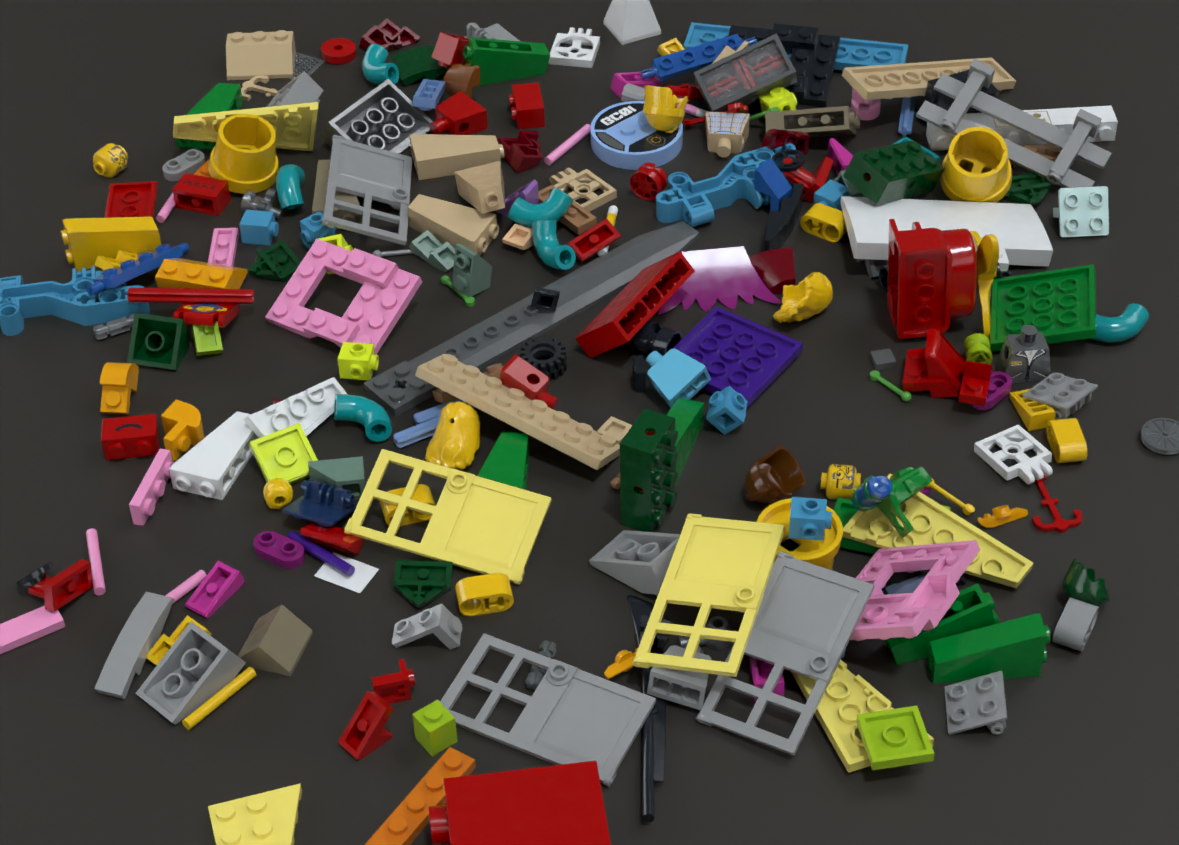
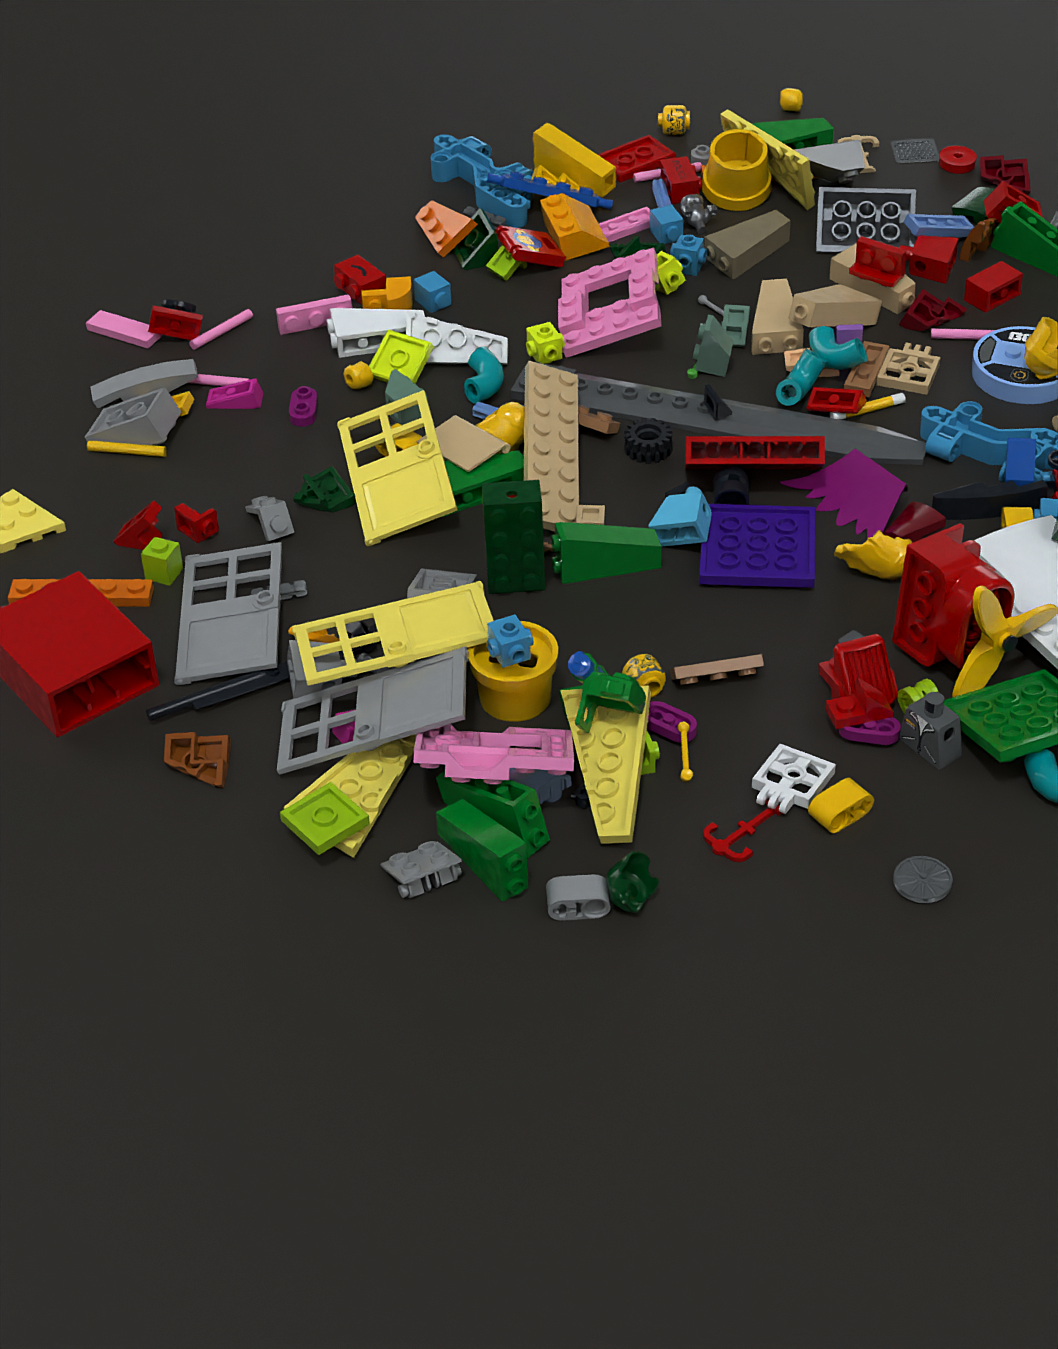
camera: 60 degrees right, 0 degrees up
(116, 347) = (444, 226): none -> orange wing
(117, 384) = (409, 240): light orange brick -> none
(159, 90) = (791, 99): none -> yellow piece
(189, 295) = (539, 230): red axle -> none
(203, 396) = (432, 291): none -> dark azure brick
(212, 216) = (660, 193): none -> medium blue axle
(260, 54) = (896, 123): tan slope -> none
(276, 642) = (200, 448): dark tan slope -> none
(288, 184) = (732, 208): teal cylinder -> none
(321, 504) = (354, 401): dark blue hinge -> none
(323, 554) = (314, 428): dark purple bar -> none
(333, 538) = (328, 416): red slope -> none
(356, 582) = (308, 451): white sticker -> none
(371, 175) = (785, 242): light grey door -> none
(375, 68) = (949, 184): teal cylinder -> none
(466, 136) = (878, 262): none -> red bracket
(474, 455) = (466, 443): none -> tan piece
(484, 594) = (331, 527): yellow beam -> none
(531, 381) = (589, 451): red torso -> none
(648, 181) = (952, 393): red wheel -> none
(727, 410) = (673, 566): dark azure brick -> none
(731, 803) = (199, 756): none -> dark orange slope
(774, 477) = (608, 625): reddish brown helmet -> none
(864, 437) = (716, 669): none -> medium nougat plate
(875, 376) = (825, 647): bright green hinge -> none
(1002, 515) = (695, 799): light orange piece -> none
(1032, 413) = (875, 776): yellow slope -> none
(1062, 393) = (908, 774): light grey hinge -> none

